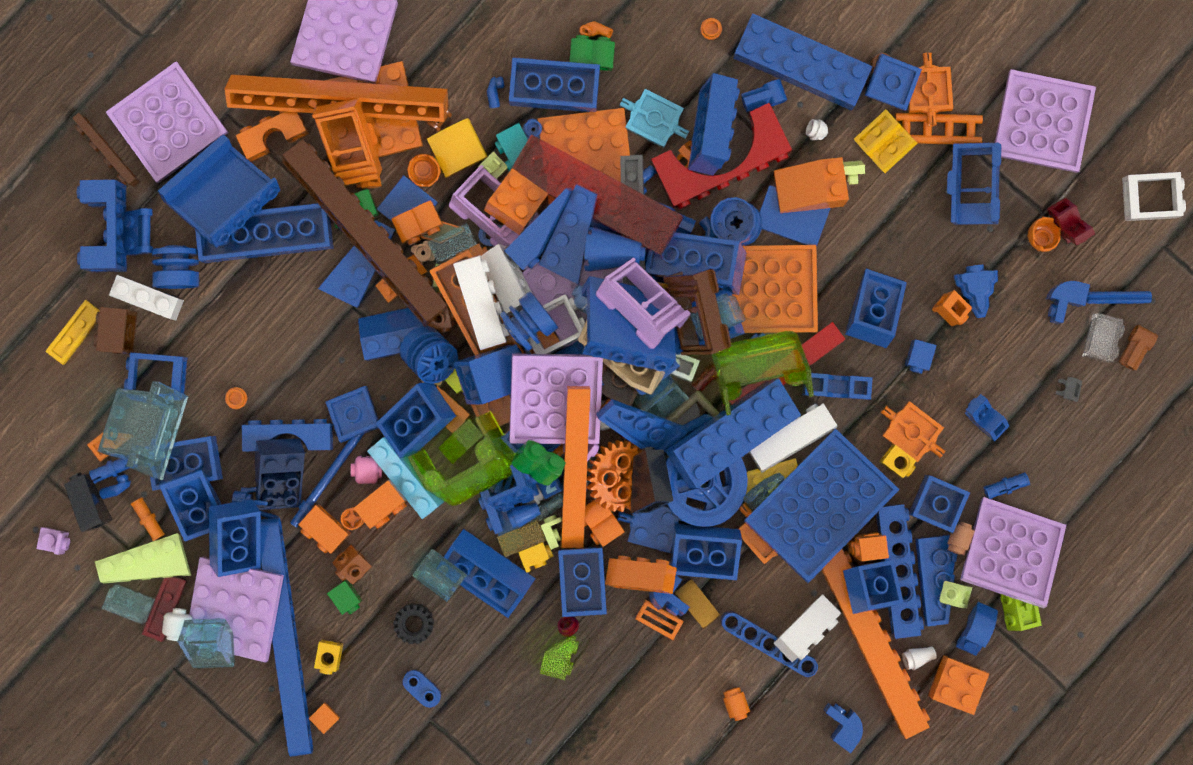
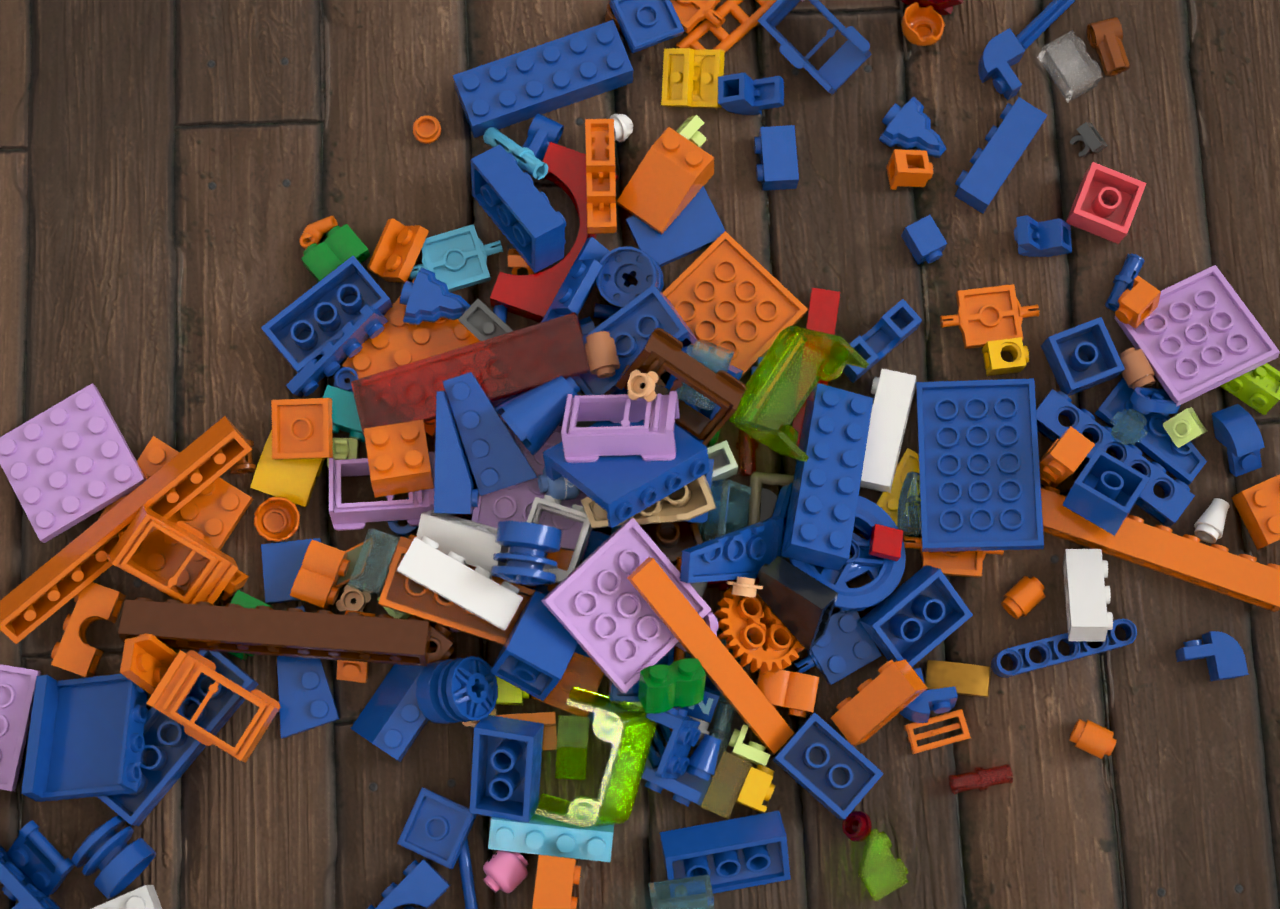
camera: 50 degrees left, 10 degrees down
(283, 186) = (146, 661): none -> orange bracket
(290, 211) = (177, 685): none -> orange piece
(481, 135) = (302, 428): none -> orange plate
(492, 92) = (273, 383): blue arm -> none
(571, 112) = (335, 351): none -> blue wing
(618, 129) = (430, 300): none -> blue rock
(627, 83) = (397, 251): none -> orange bracket
(628, 448) = (744, 587): none -> light nougat plate
(656, 666) = (980, 779): none -> clear red pin
(670, 289) = (634, 385): none -> light nougat plate
(674, 253) = (602, 354): none -> nougat brick
(704, 197) = (578, 281): none -> blue bracket
(729, 497) = (886, 542): none -> red tile
(745, 97) = (524, 156): none -> medium azure pin
(775, 596) = (1023, 597): none -> orange brick
(776, 149) = (600, 176): none -> orange slope
(876, 308) = (841, 237): blue slope -> none
(886, 232) = (777, 157): none -> blue brick
(906, 182) = (748, 96): none -> blue brick
(923, 565) = (1128, 427): none -> clear light blue gear
(950, 564) = (1153, 400): none -> blue plate
(998, 504) = (1137, 303): none -> orange brick
(1011, 349) = (1000, 155): none -> blue brick
(1040, 433) = (1106, 203): none -> coral brick

